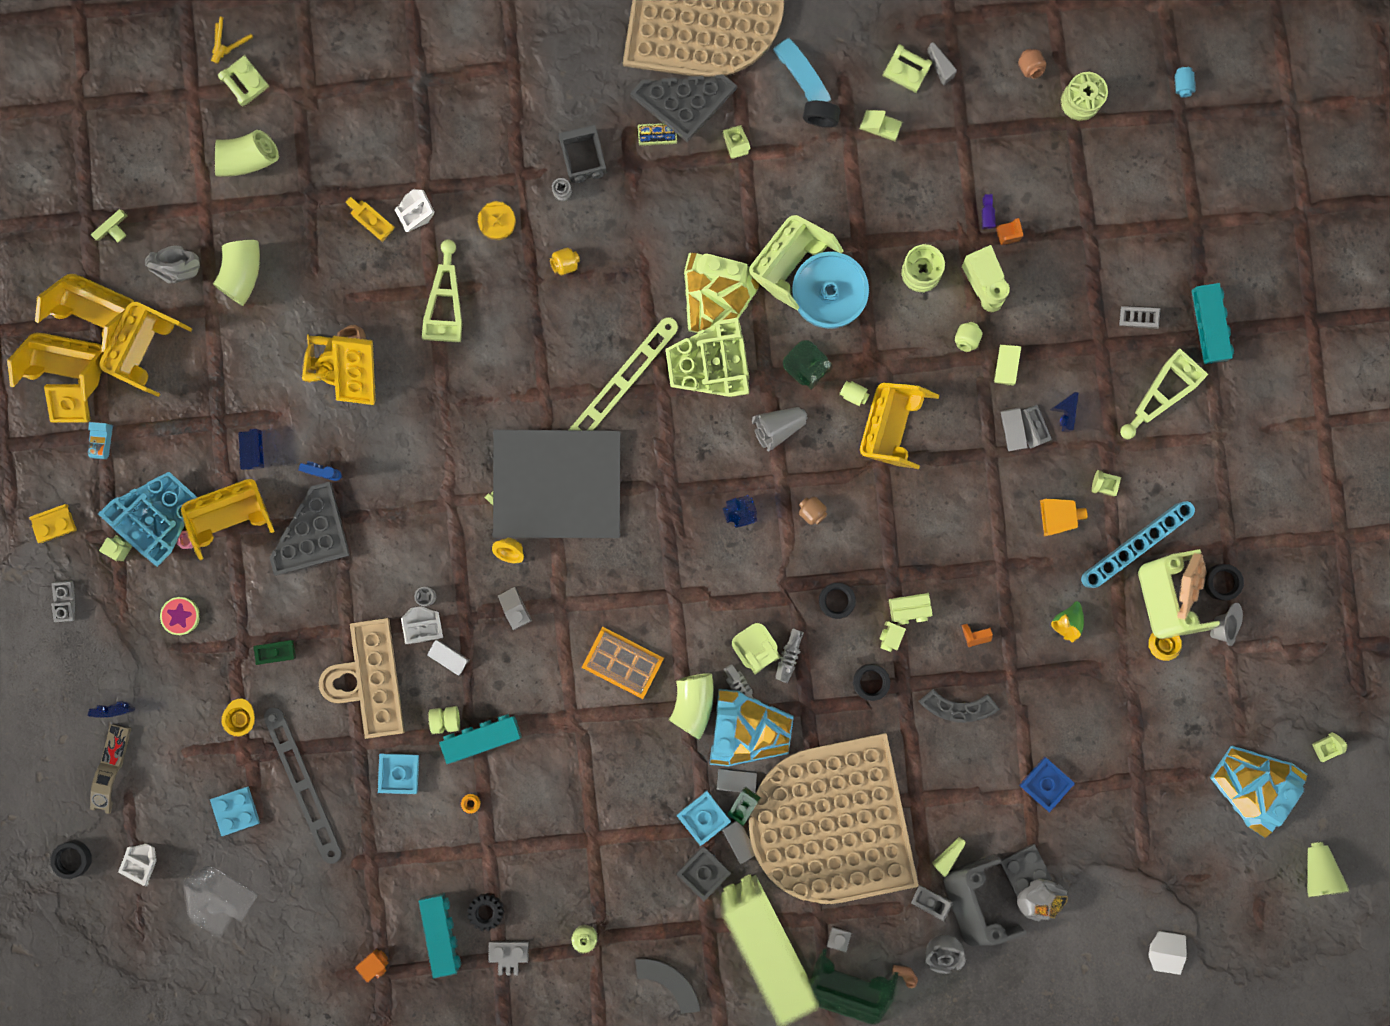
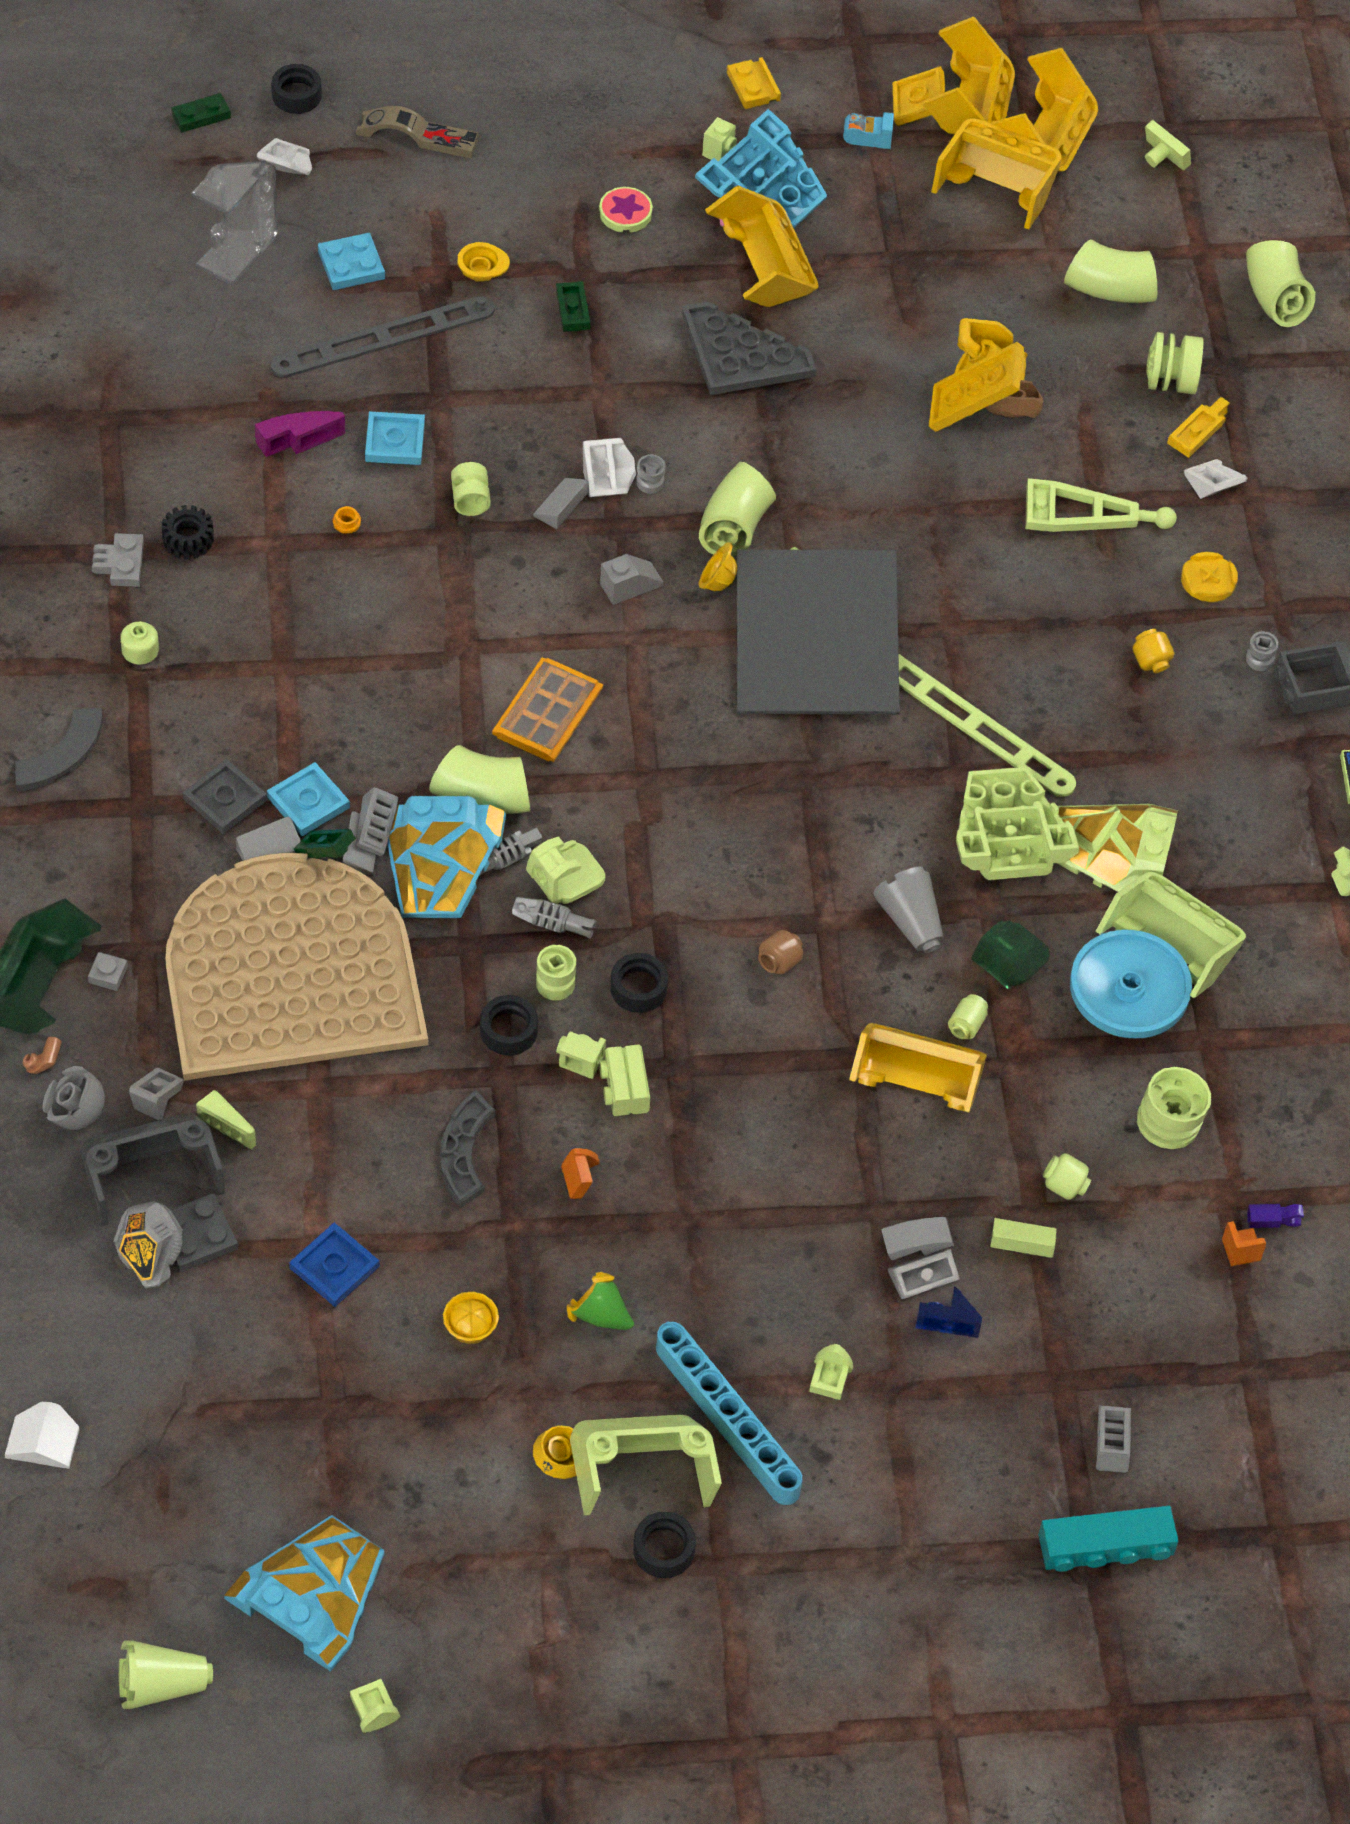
camera: 85 degrees right, 30 degrees down
(64, 601) = (643, 92): light grey slope -> none
(94, 928) = (201, 112): none -> dark green plate
(118, 709) = (497, 133): clear blue slope -> none
(180, 264) = (1112, 215): light grey helmet -> none
(251, 449) = (860, 292): clear blue panel -> none
(317, 470) = (831, 354): blue plate -> none
(320, 236) = (1175, 363): none -> yellowish green wheel
(373, 965) = (123, 400): orange brick -> none
(375, 677) = (533, 416): tan plate -> none
(395, 840) = (298, 431): none -> magenta slope
(438, 935) = (159, 476): teal brick -> none
(461, 539) = (735, 509): none -> yellowish green brick
(481, 739) = (441, 532): teal brick -> none
(716, 779) = (381, 804): none -> light grey slope
(740, 511) = (780, 858): clear blue hair -> none
(767, 949) = (104, 781): yellowish green door -> none
(835, 653) = (556, 972): none -> yellowish green wheel
(986, 278) = (1163, 1195): yellowish green piece -> none
(1060, 515) = (774, 1298): light orange torso -> none
(1080, 700) = (470, 1317): none -> yellow hat
(1184, 368) = (1025, 1503): yellowish green plate -> none
(1192, 582) = (665, 1460): light nougat wing -> none
(1229, 624) = (593, 1547): light grey piece -> none

